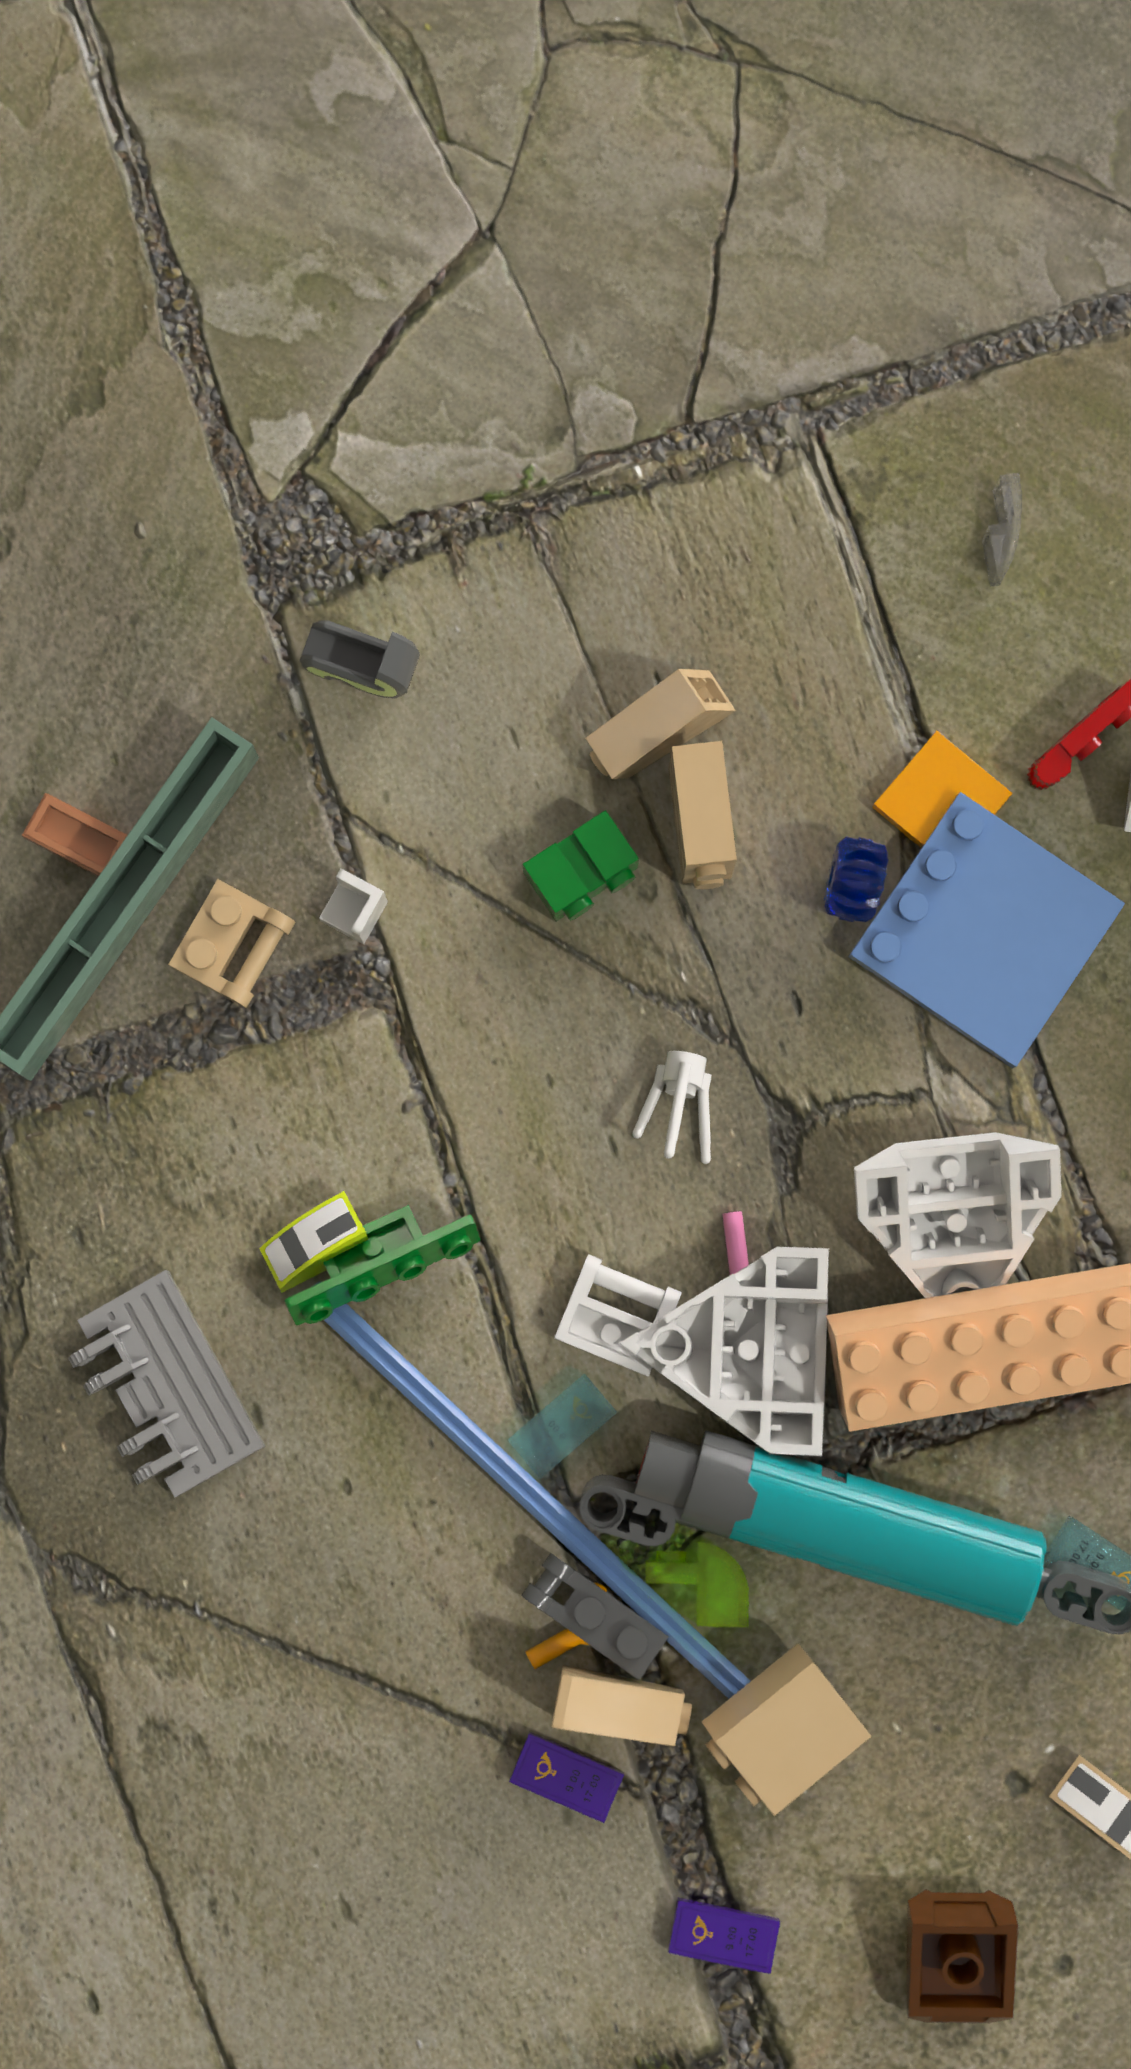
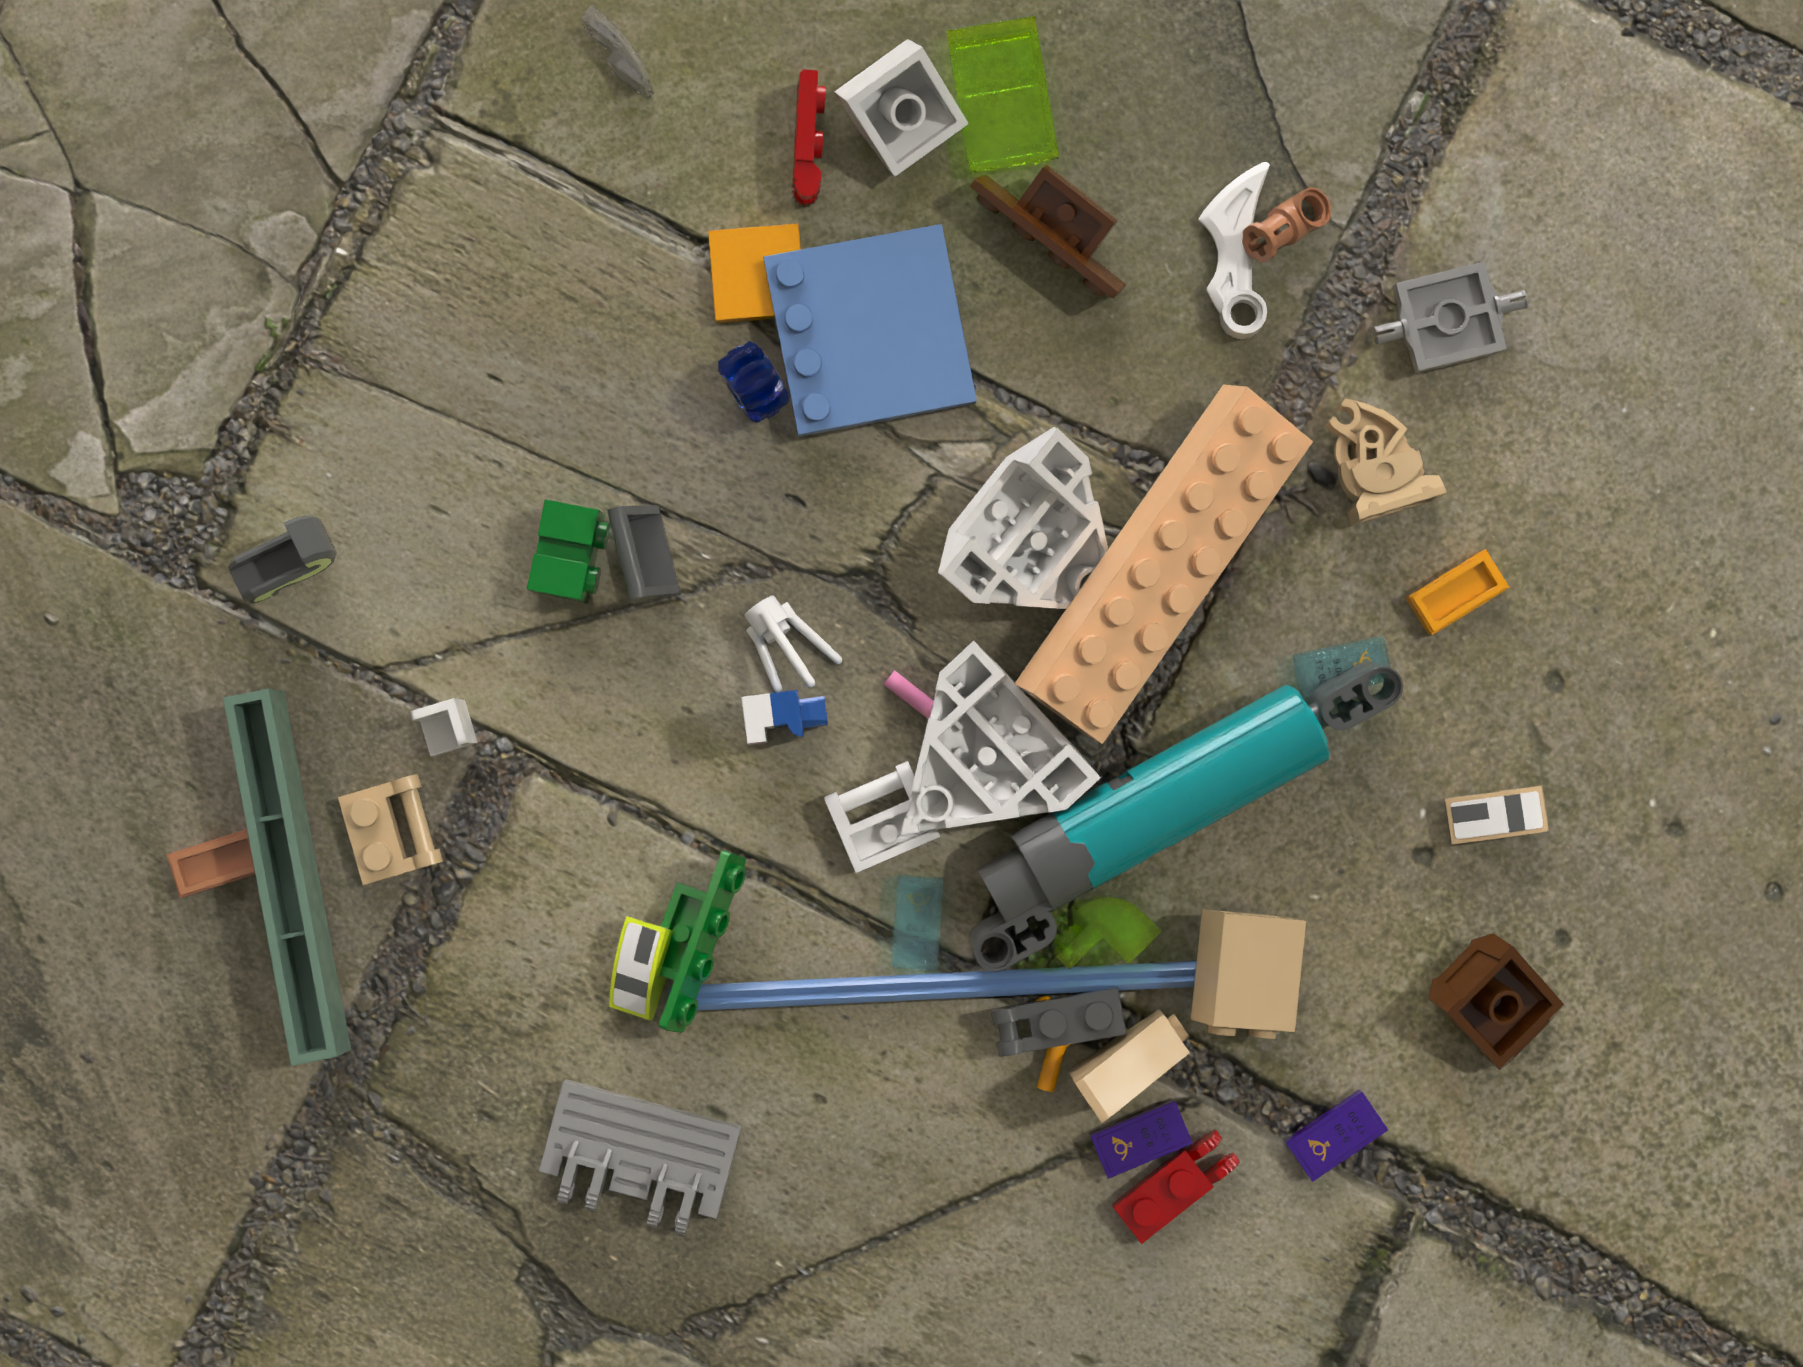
camera: 45 degrees left, 5 degrees up
(551, 1842) = (1172, 1188): none -> red hinge
(624, 1154) = (779, 711): none -> hips
(639, 927) = (644, 553): none -> dark grey tile
(661, 718) = (522, 406): tan slope -> none
(702, 814) = (610, 438): tan brick -> none

